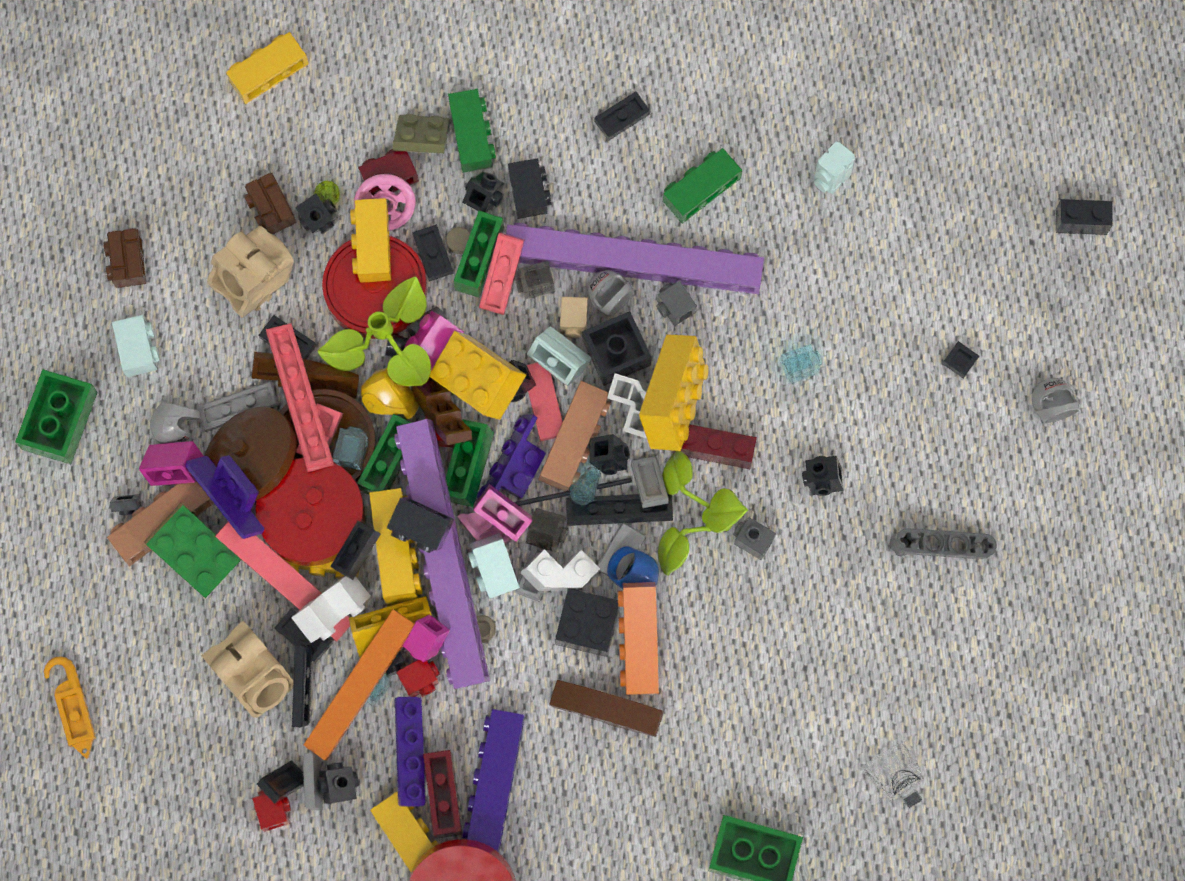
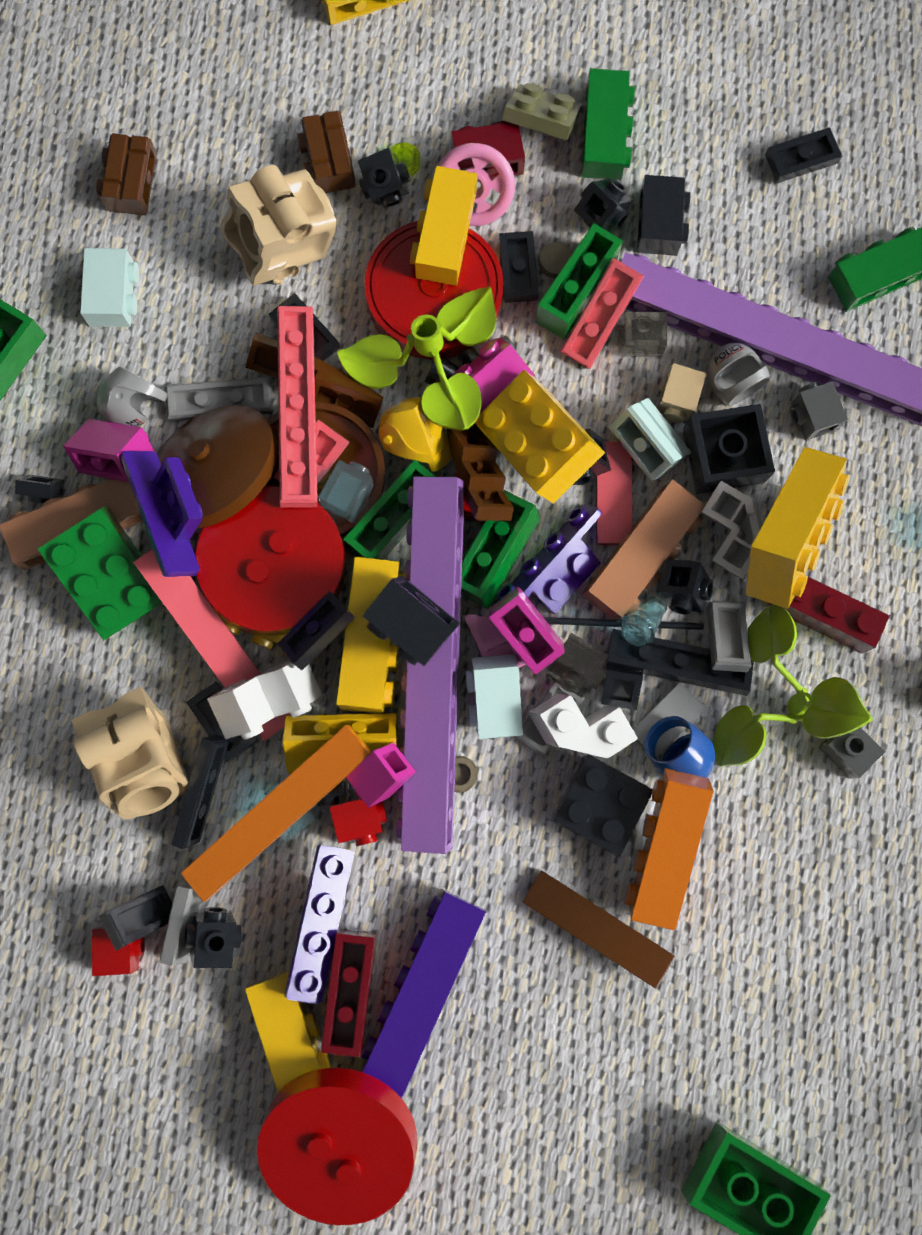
camera: 10 degrees right, 5 degrees up
(582, 537) = (622, 688): none -> black plate

